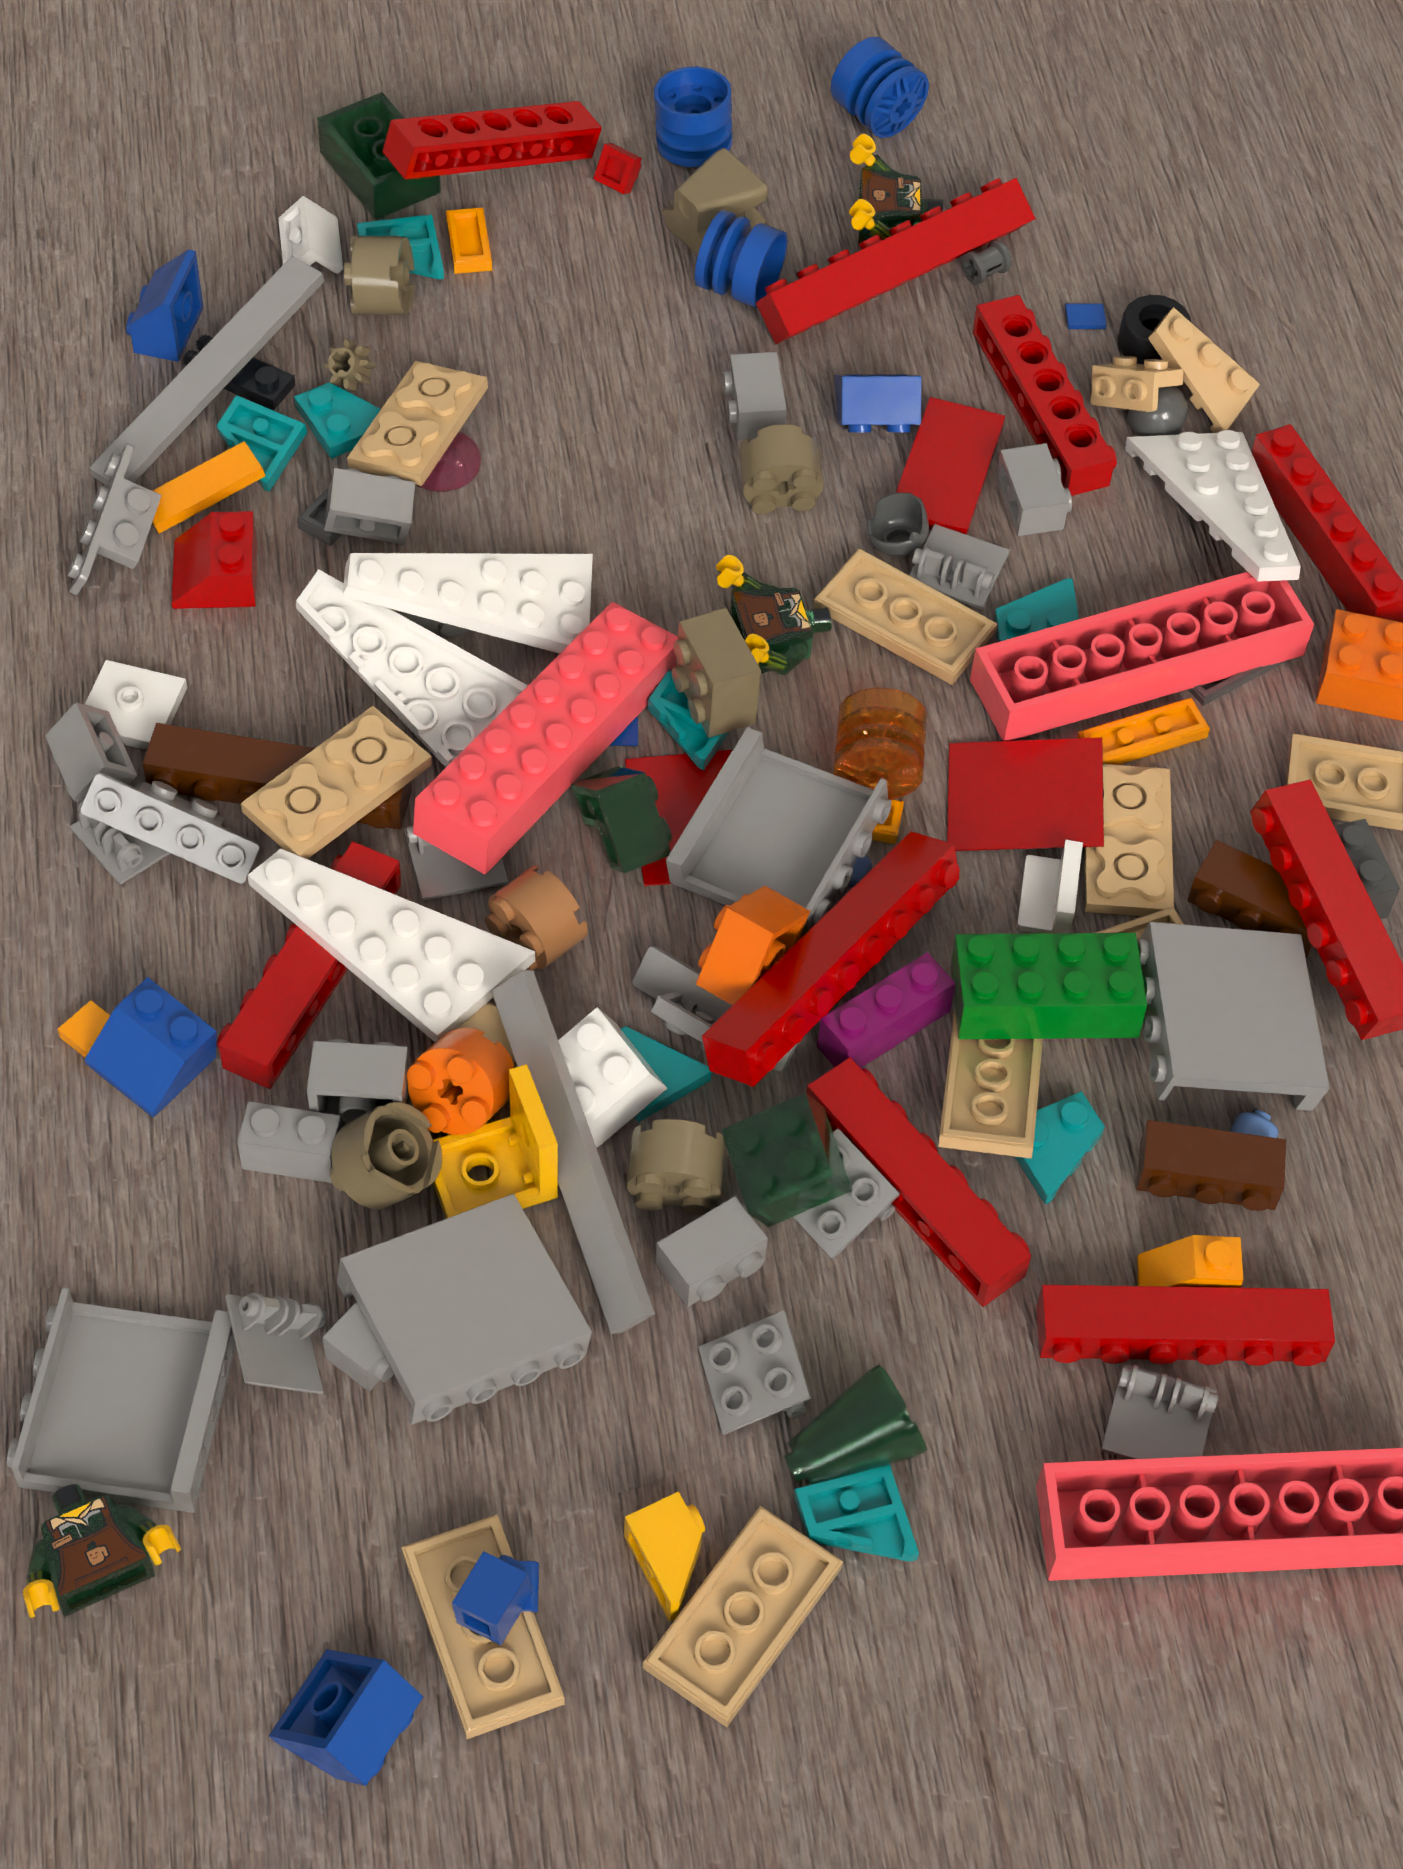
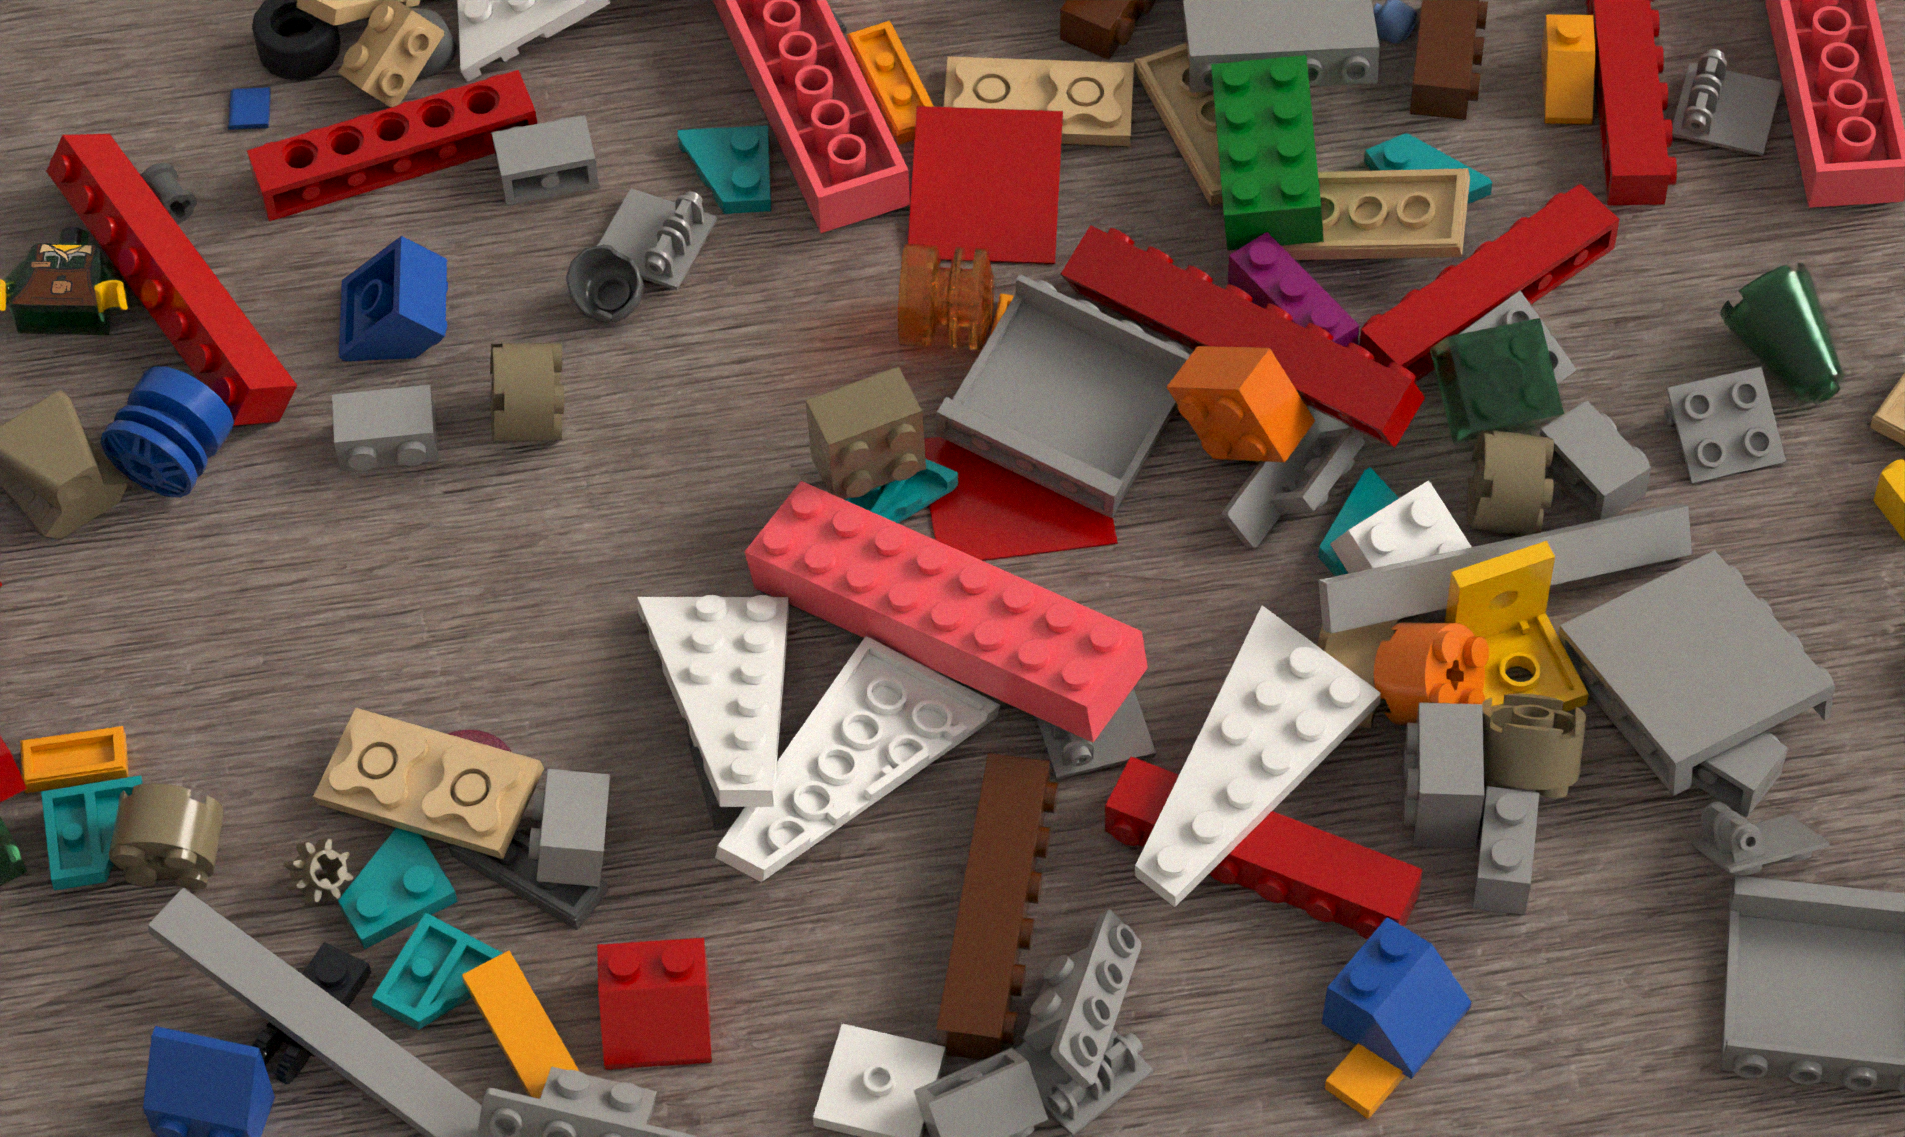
camera: 85 degrees left, 0 degrees up
(311, 235) = (66, 947): white panel -> none
(336, 784) = (1031, 820): tan piece -> none
(537, 915) = (1201, 618): medium nougat brick -> none
(626, 816) = (1052, 535): clear green brick -> none
(771, 618) = (753, 410): torso -> none
(858, 1514) = (1867, 342): teal wing -> none
(905, 616) = (732, 288): tan piece -> none
(951, 461) = (500, 243): red tile -> none
(1050, 891) = (1113, 164): white panel -> none

